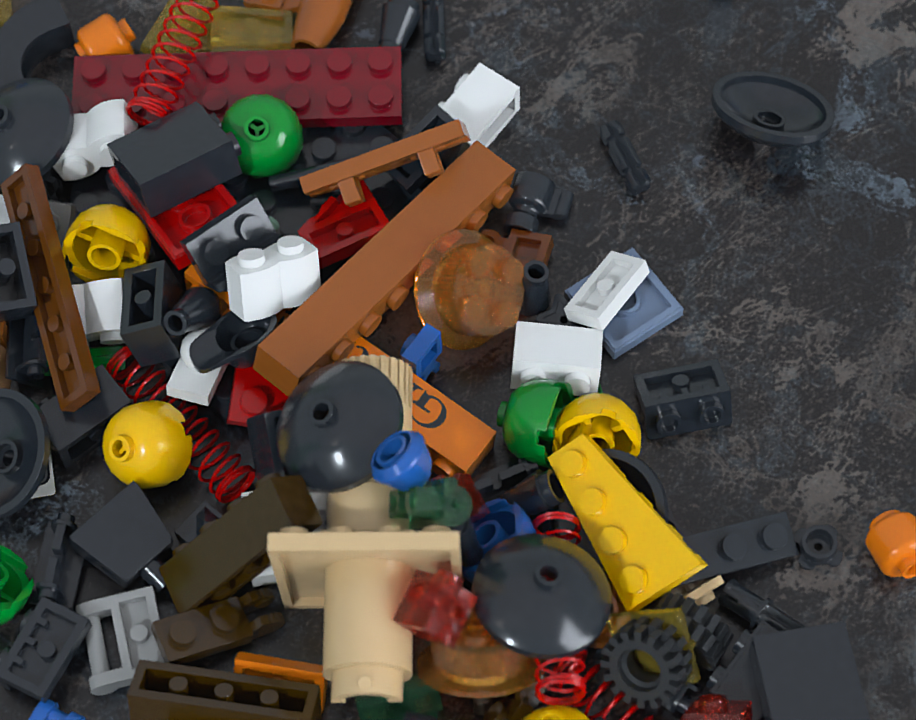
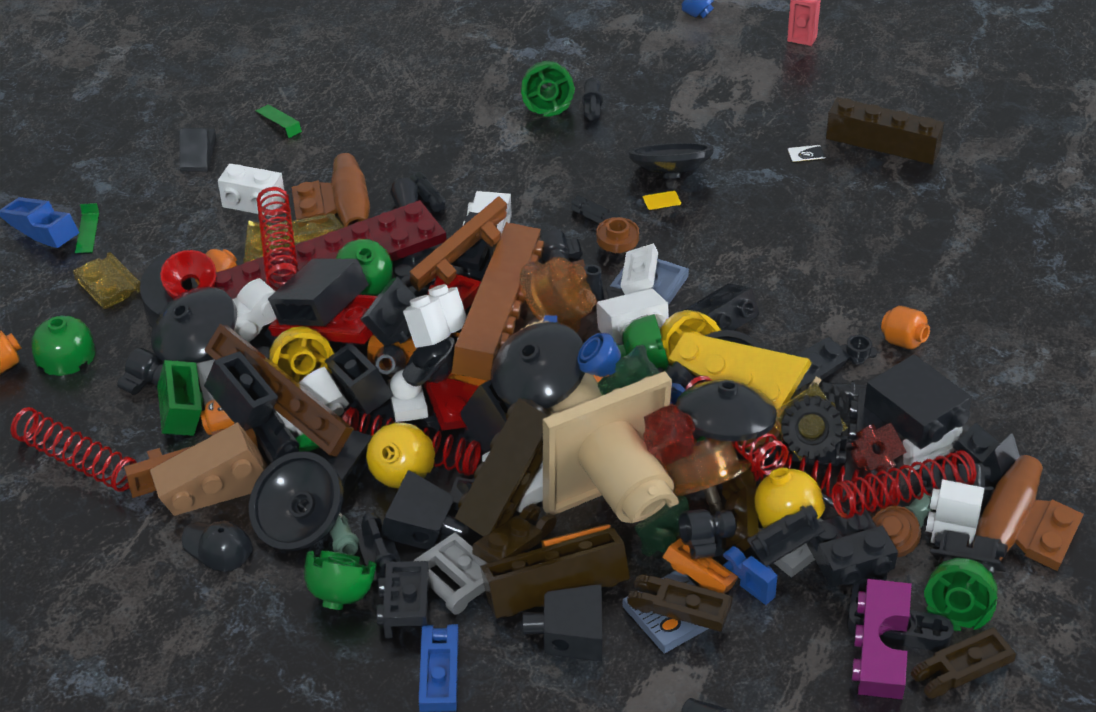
camera: 30 degrees left, 20 degrees down
(29, 525) = (343, 538): none -> sand green pin
(40, 37) = (187, 265): none -> red piece
(622, 212) = (617, 235): none -> dark orange plate
(727, 170) = (661, 200): none -> yellow sticker

